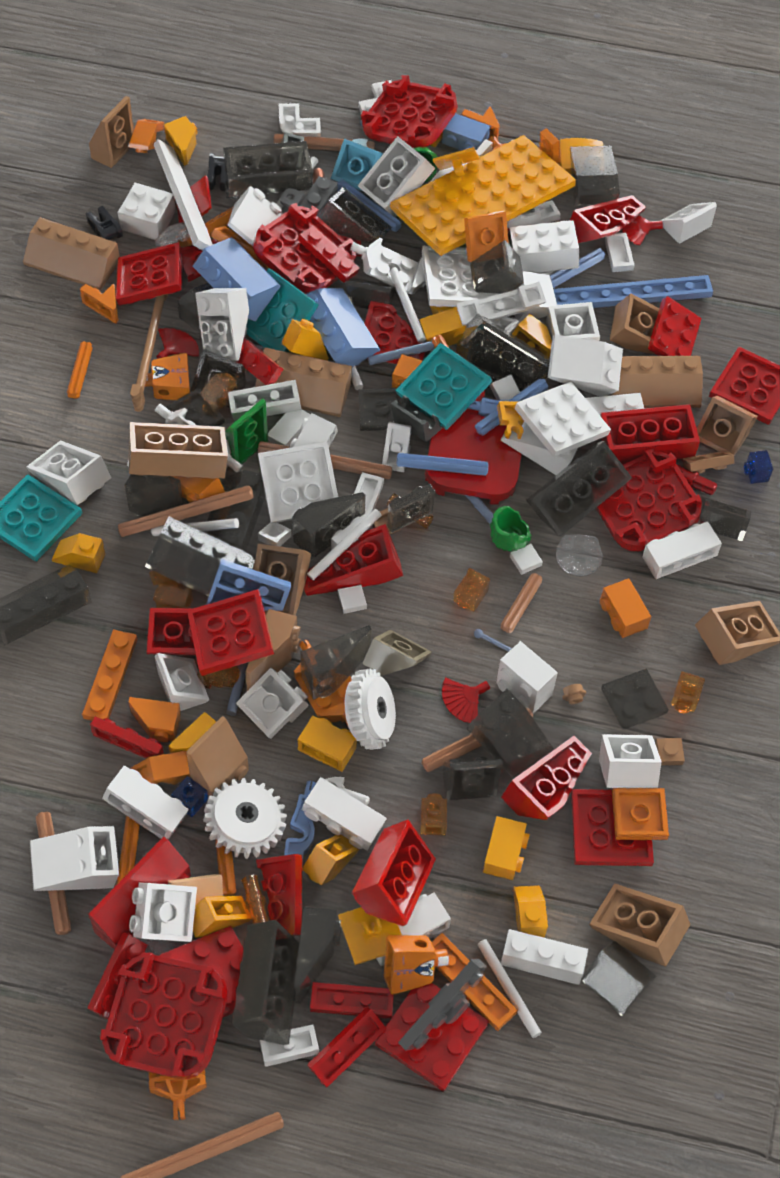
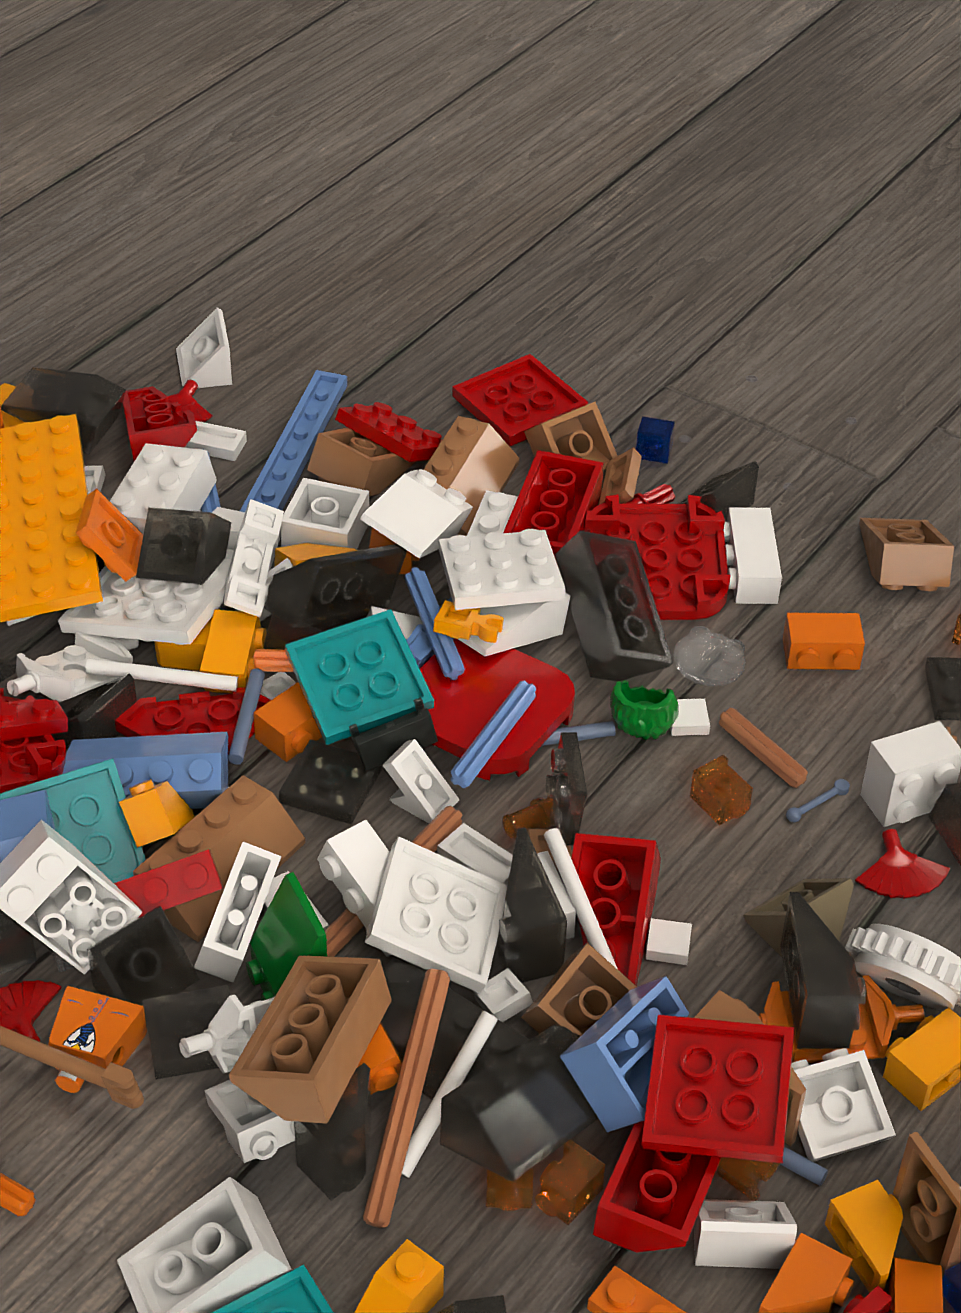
camera: 65 degrees left, 15 degrees down
(217, 390) = (175, 965): clear orange brick -> none

